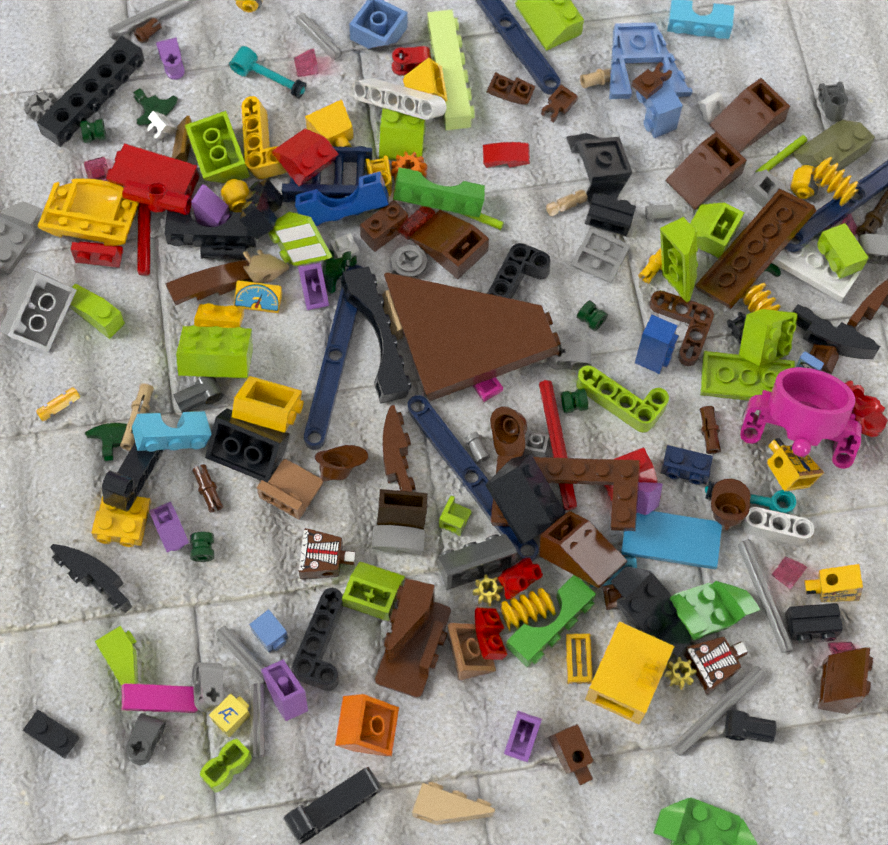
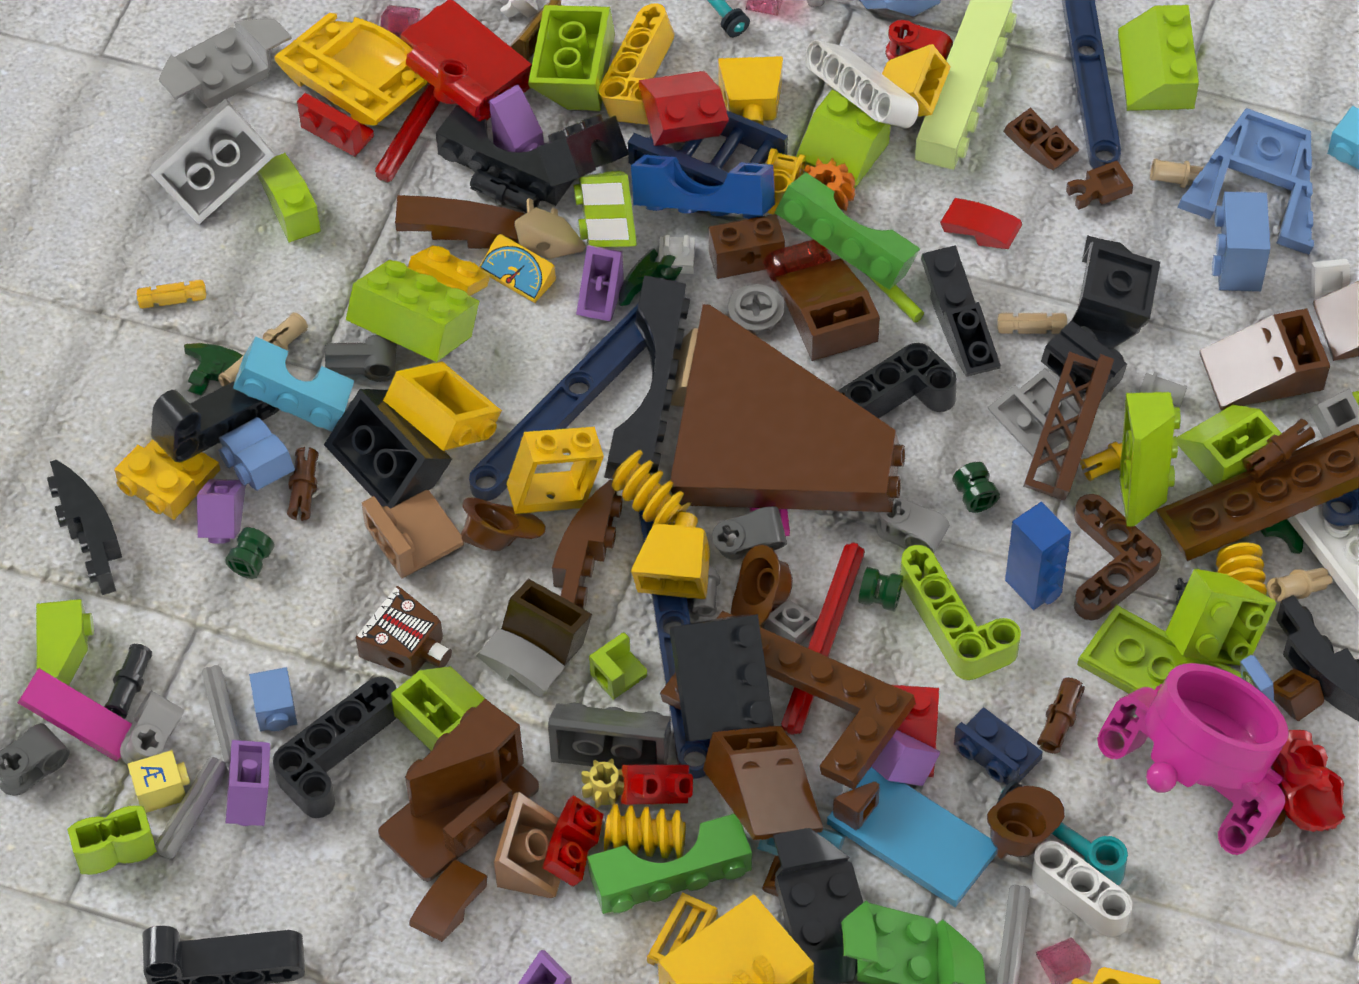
camera: 30 degrees right, 10 degrees down
(171, 484) = (255, 454): none -> medium blue brick
(175, 660) = (128, 680): none -> black pin
(234, 194) = (561, 115): yellow head -> none
(358, 411) = (568, 488): none -> yellow window
(367, 725) = (332, 881): orange slope -> none
(418, 403) = (647, 492): none -> yellow piece
(440, 704) = (446, 900): none -> reddish brown slope
(455, 437) = (674, 560): none -> yellow torso
(489, 399) = (753, 529): none -> dark grey piece
(525, 216) = (958, 312): none -> black slope
(633, 254) = (1081, 430): none -> reddish brown fence
(638, 538) = (856, 805): none -> reddish brown slope
(651, 82) = (1238, 198): reddish brown plate -> none
(747, 221) = (1279, 448): none -> reddish brown pin
(790, 470) = (1151, 819): yellow torso -> none
(794, 295) = (1298, 583): none -> tan axle

